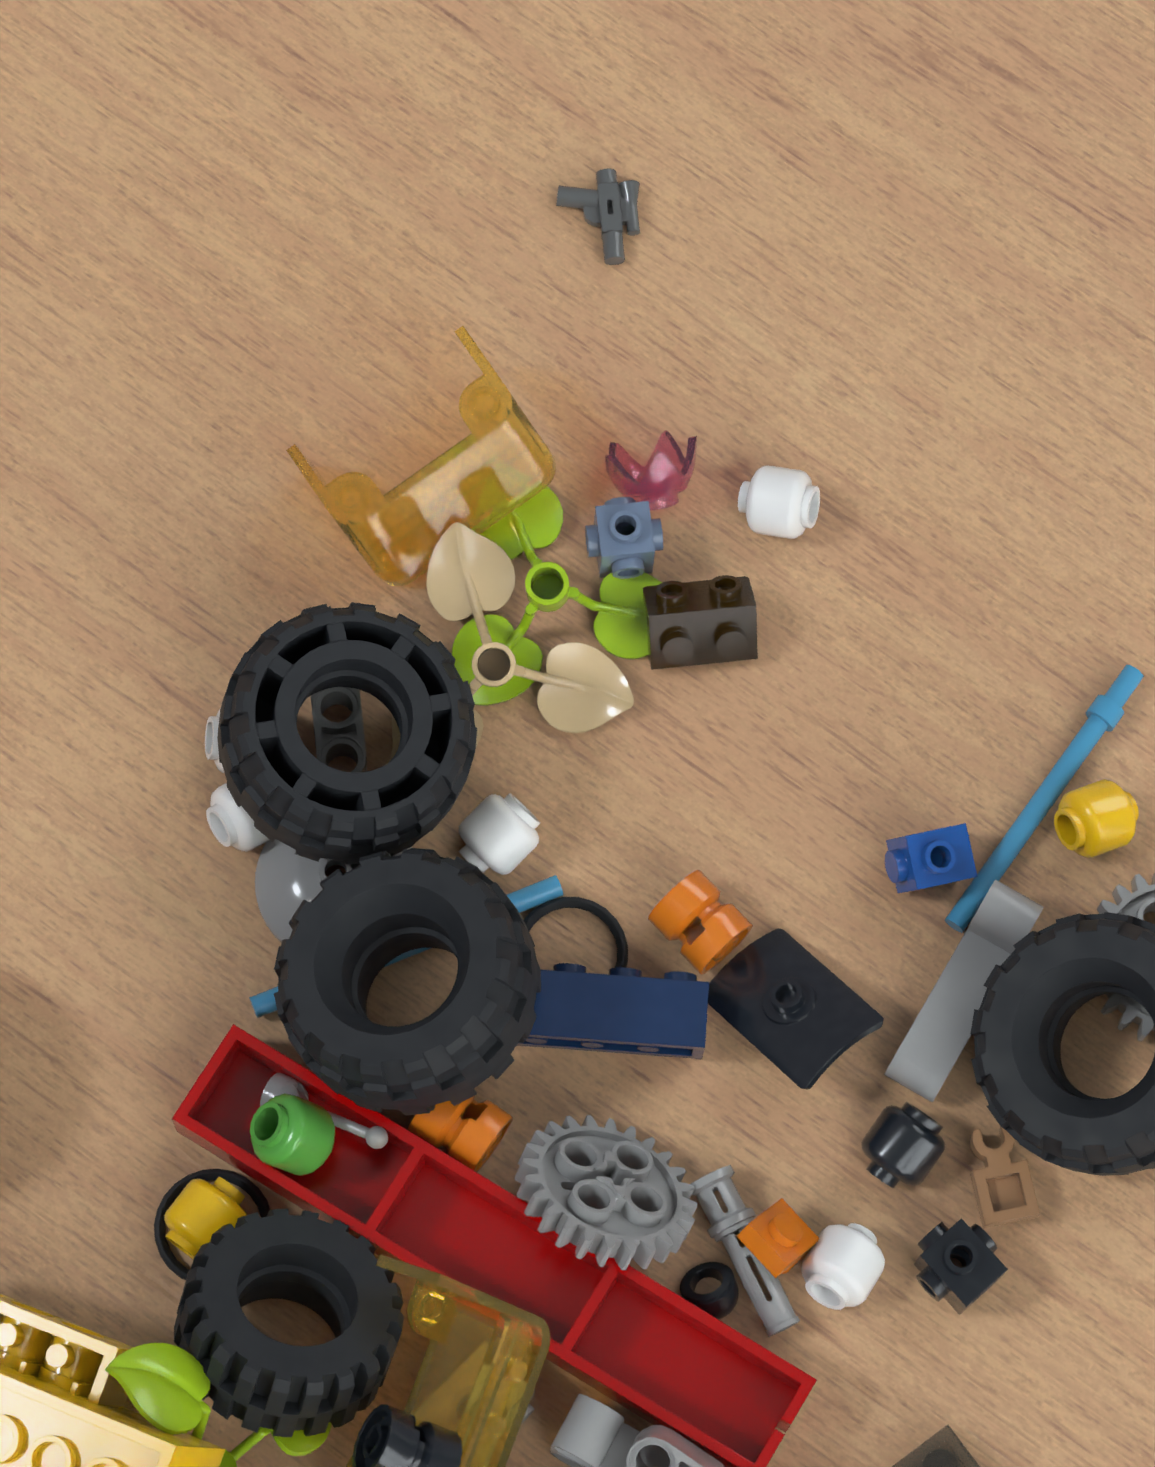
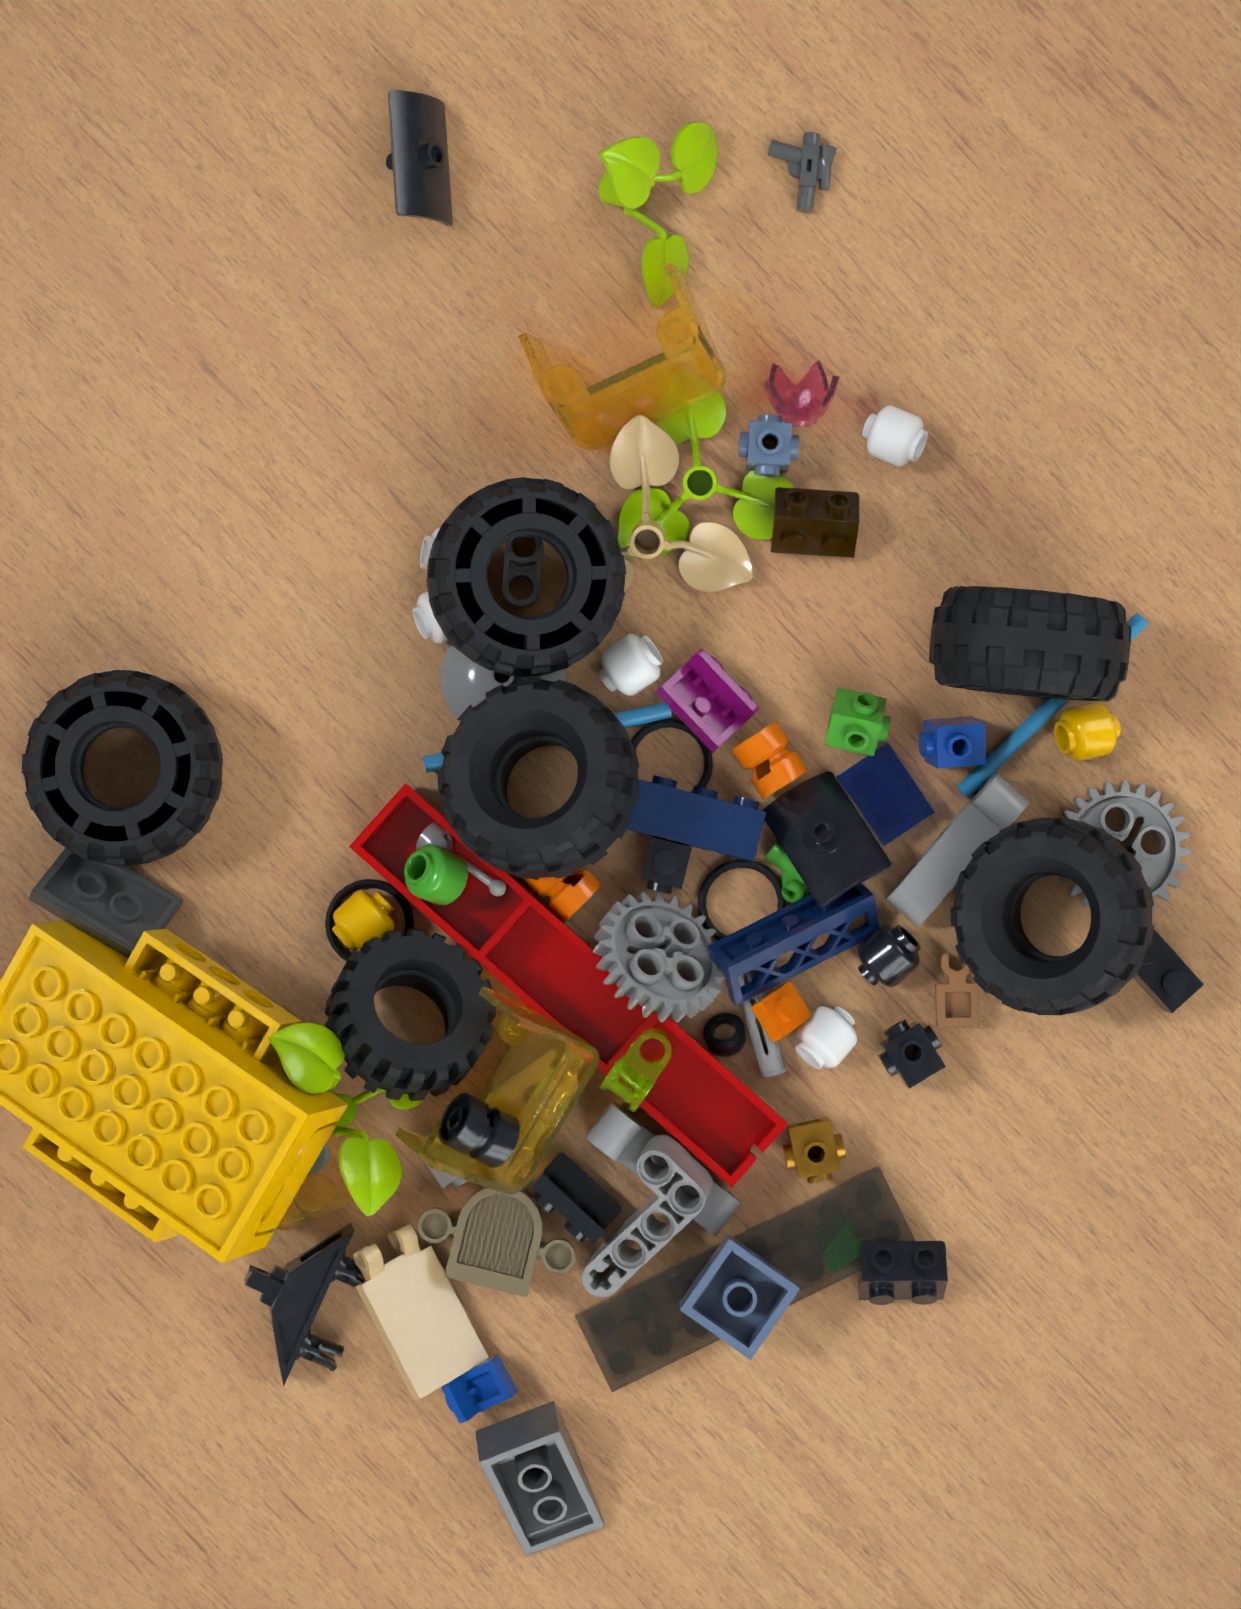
camera: 15 degrees right, 15 degrees up
(126, 267) = (419, 156): none -> black shield
(396, 220) = (627, 183): none -> lime plant
(590, 1077) = (665, 865): none -> black brick
(603, 1339) = (637, 1070): none -> clear neon green piece
(606, 861) = (707, 700): none -> magenta bracket
(737, 1081) = (738, 863): none -> black tyre
(762, 1076) = (792, 884): none -> bright green arm
(776, 1122) = (792, 930): none -> dark blue fence
(803, 854) = (857, 722): none -> bright green brick
(856, 940) = (885, 794): none -> clear blue plate
(862, 1395) = (809, 1134): none -> pearl gold brick
(1002, 704) = (1030, 643): none -> black tyre

